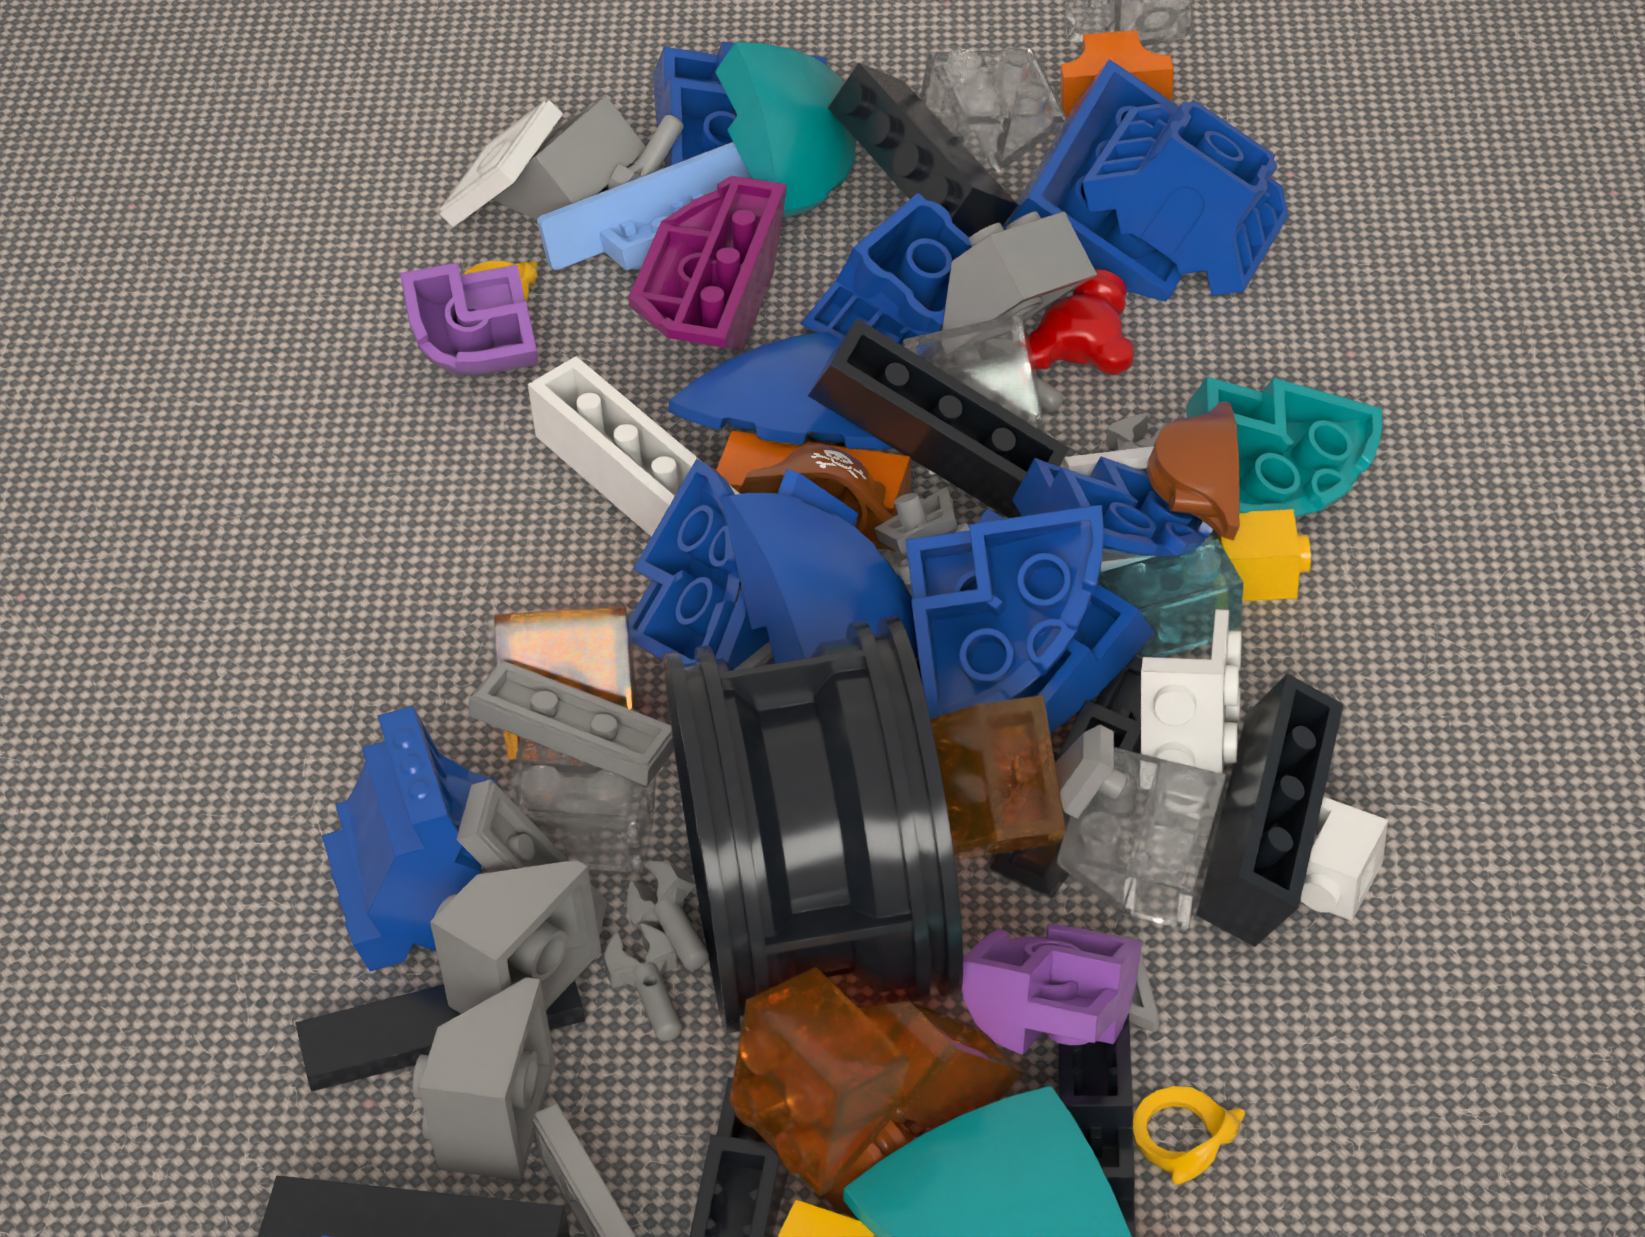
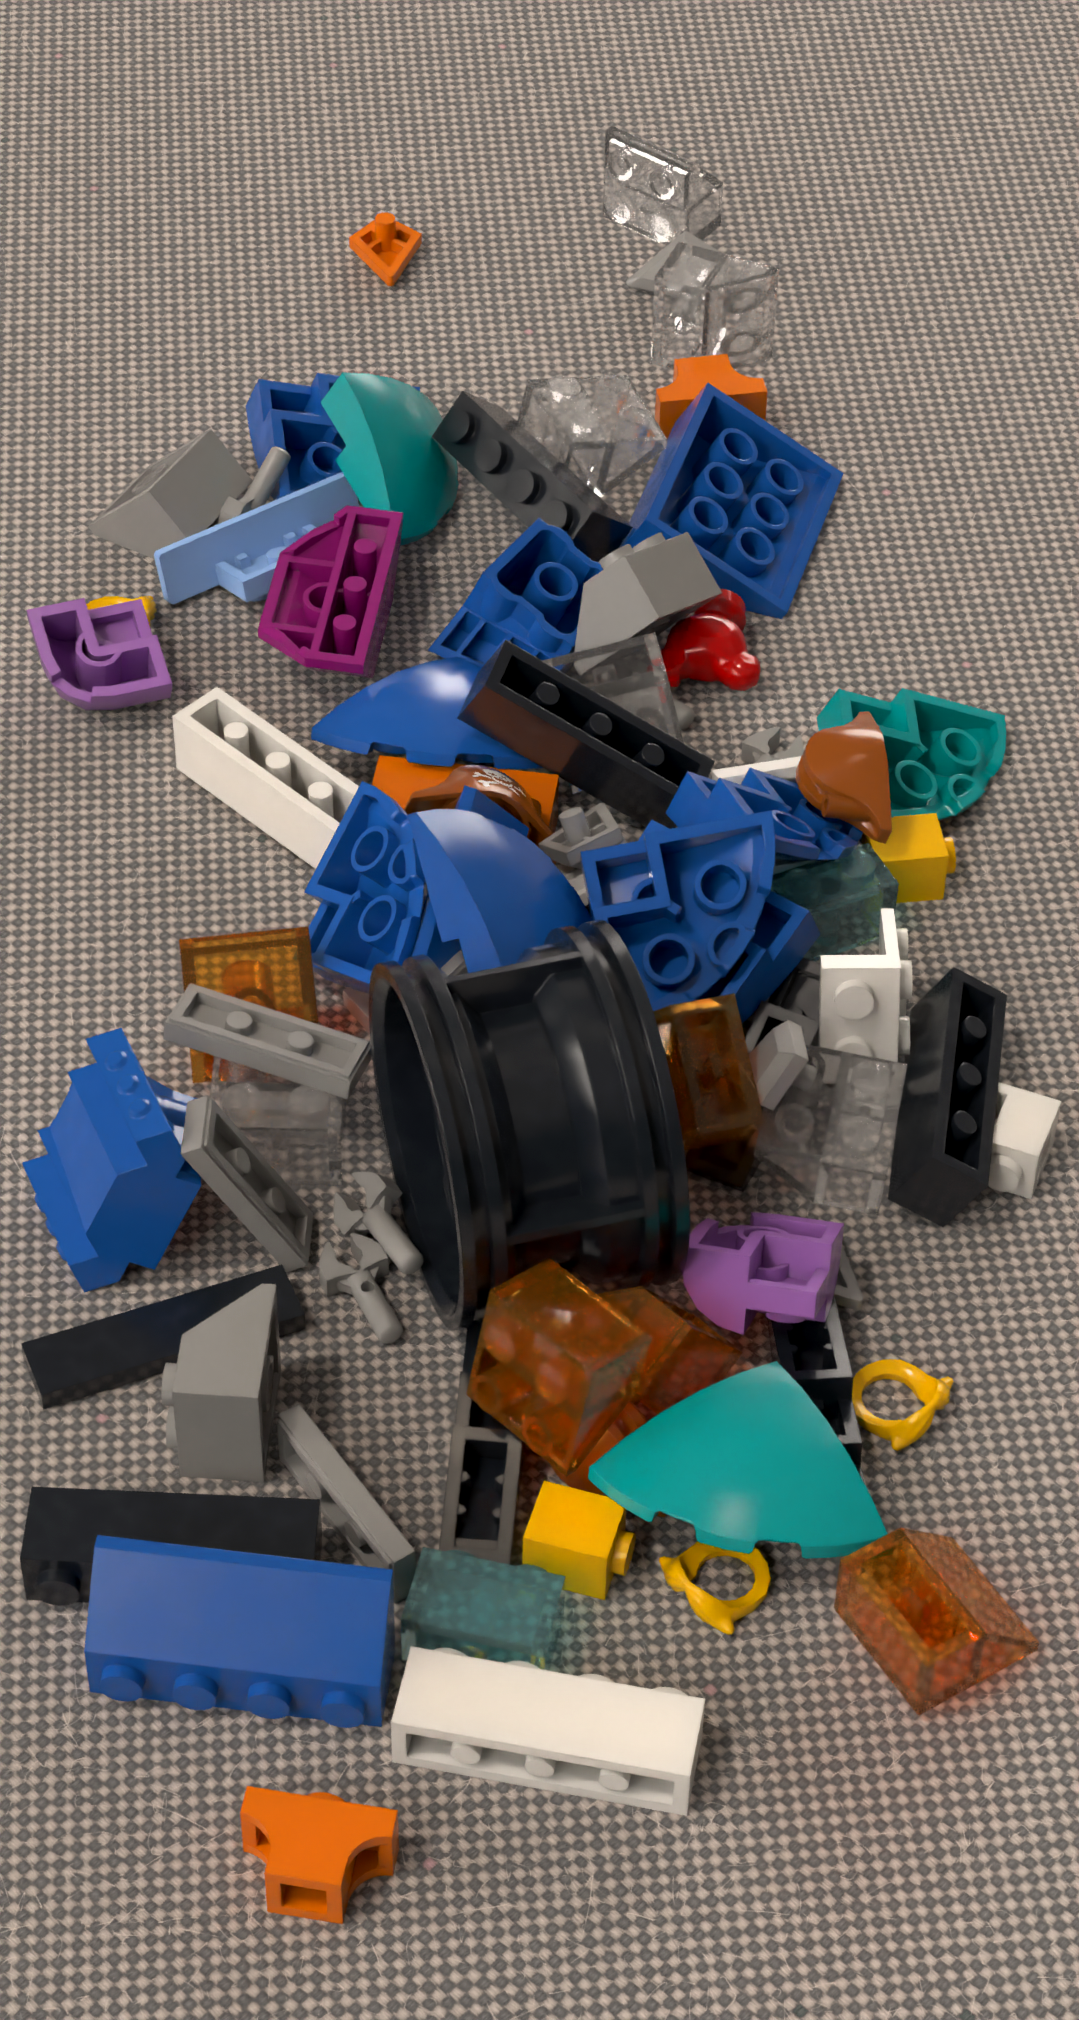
camera: 10 degrees left, 0 degrees up
(500, 163) = (107, 498): white tile -> none
(514, 928) = (236, 1240): light grey slope -> none
(1191, 191) = (799, 510): blue slope -> none

